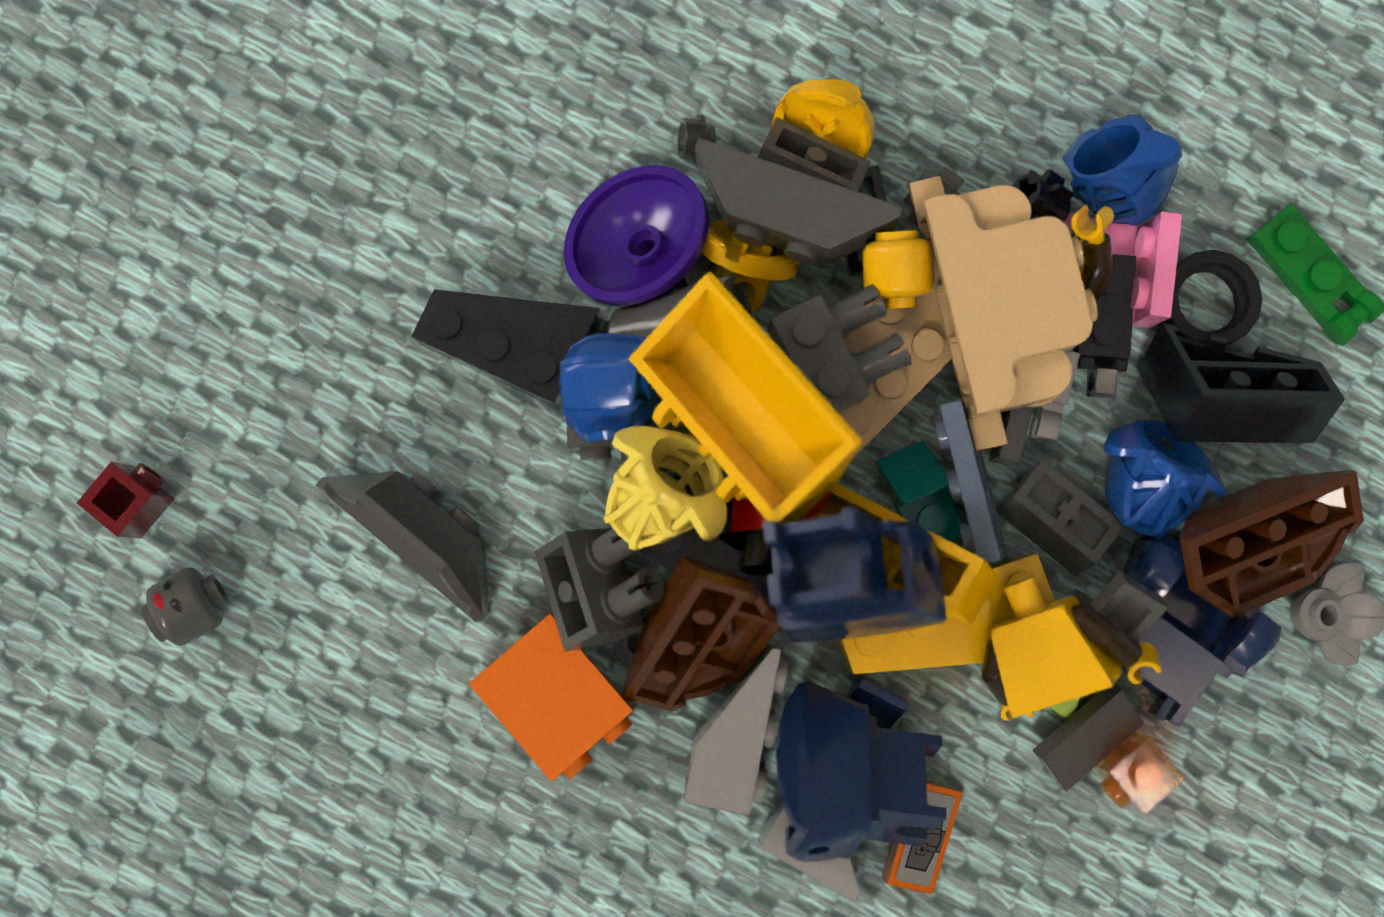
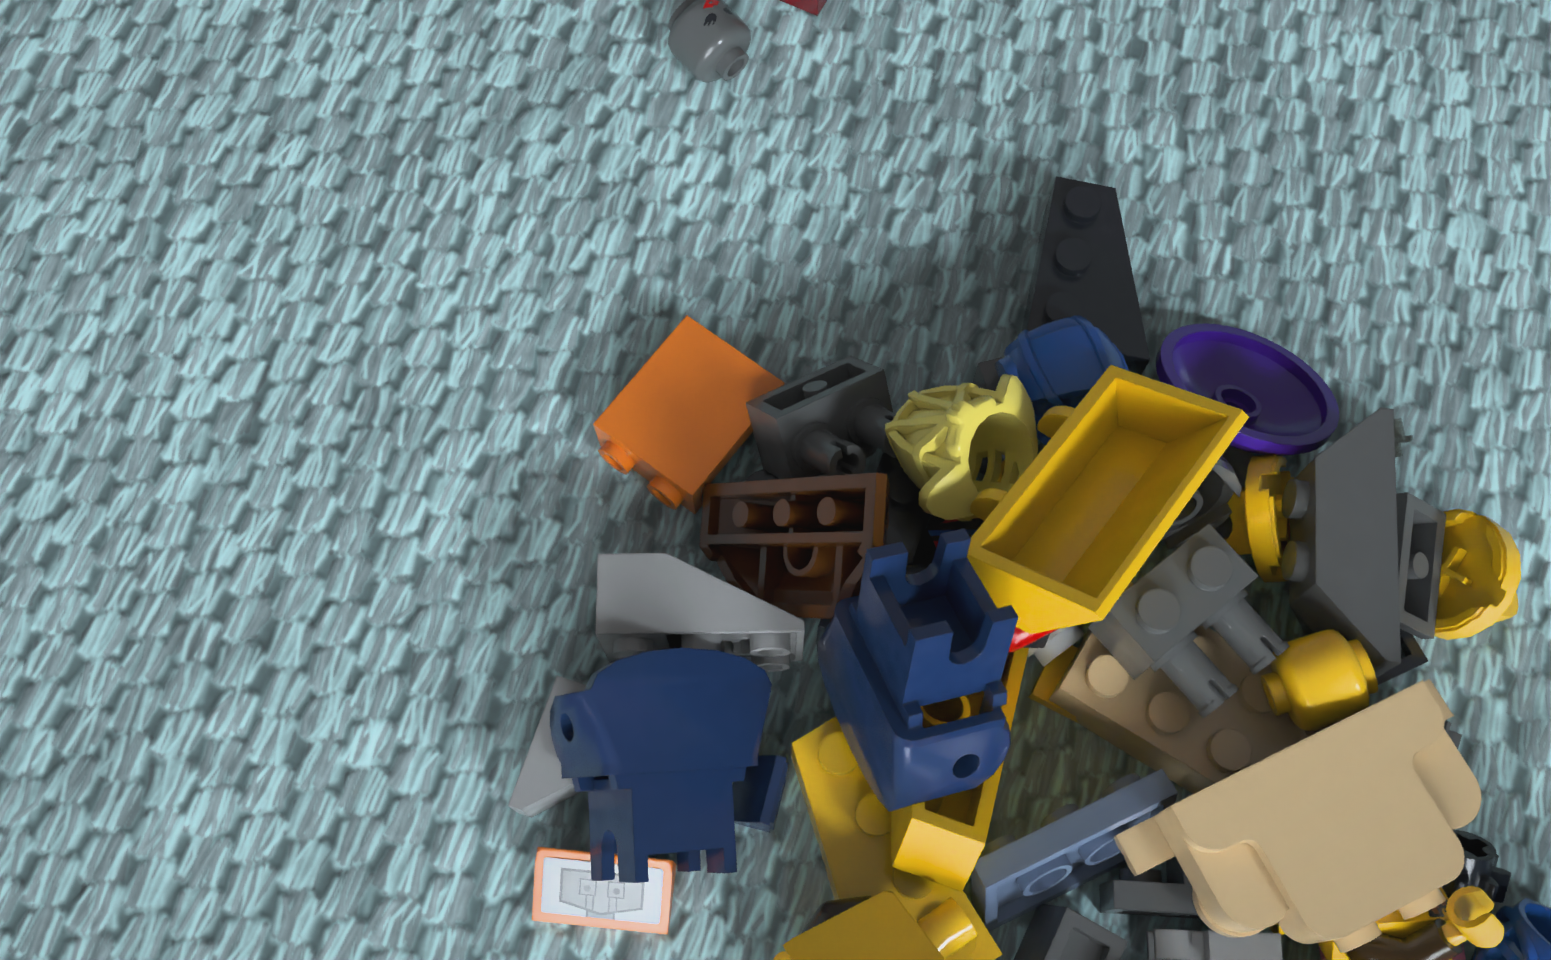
camera: 80 degrees right, 15 degrees down
(419, 531) = (840, 244): dark grey wedge -> none
(920, 490) = (1037, 788): teal slope -> none

